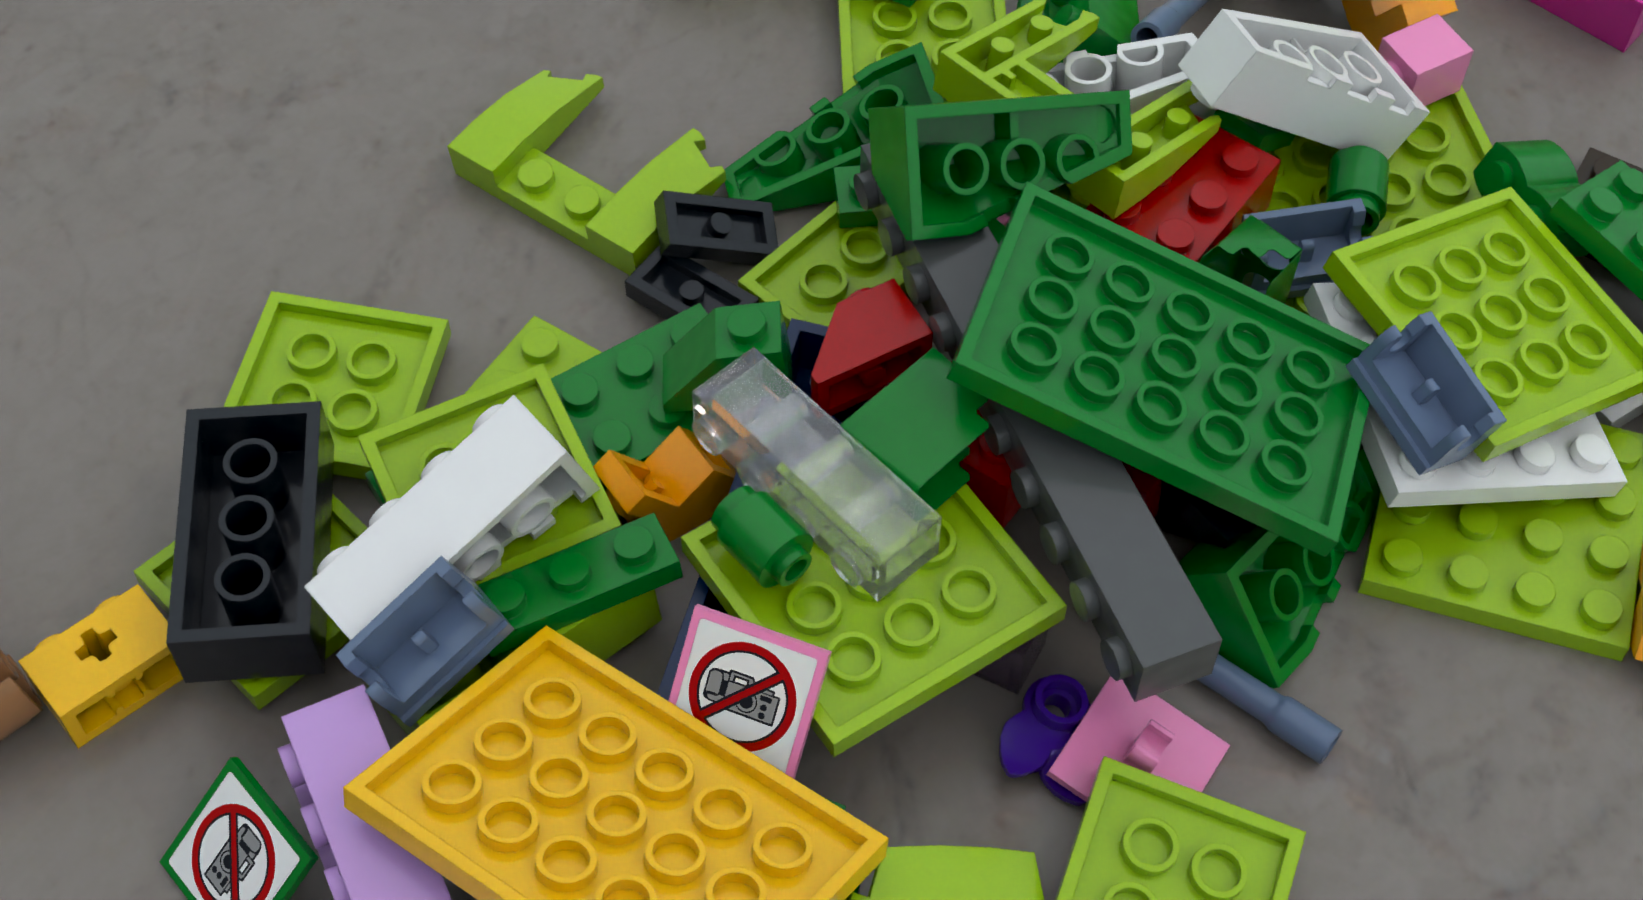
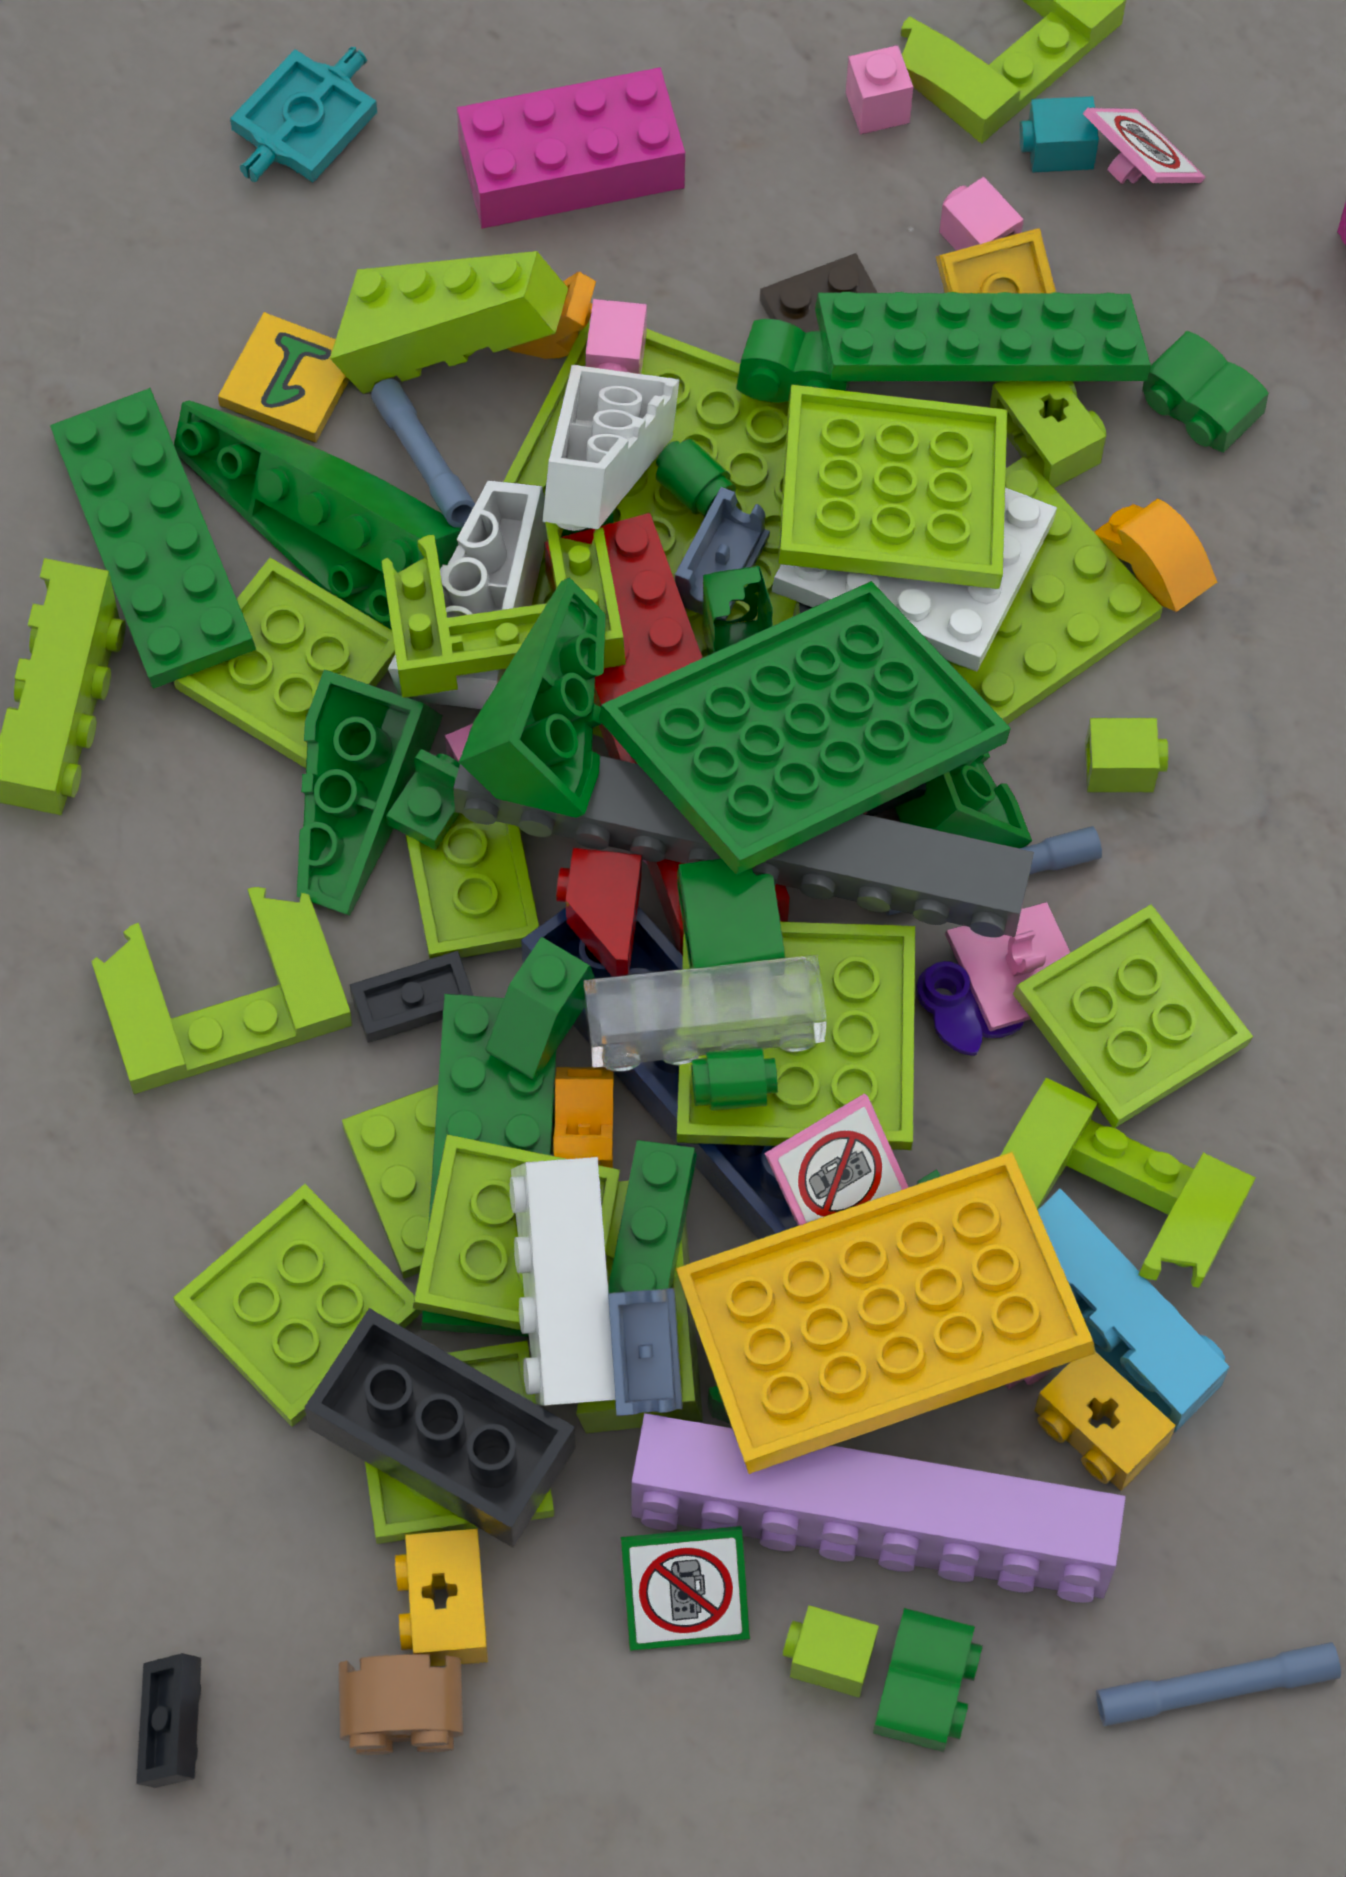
camera: 55 degrees left, 10 degrees up
(714, 227) = (369, 937): black plate -> none
(1426, 394) = (936, 584): sand blue hinge -> none
(1442, 709) = (1124, 754): none -> lime brick

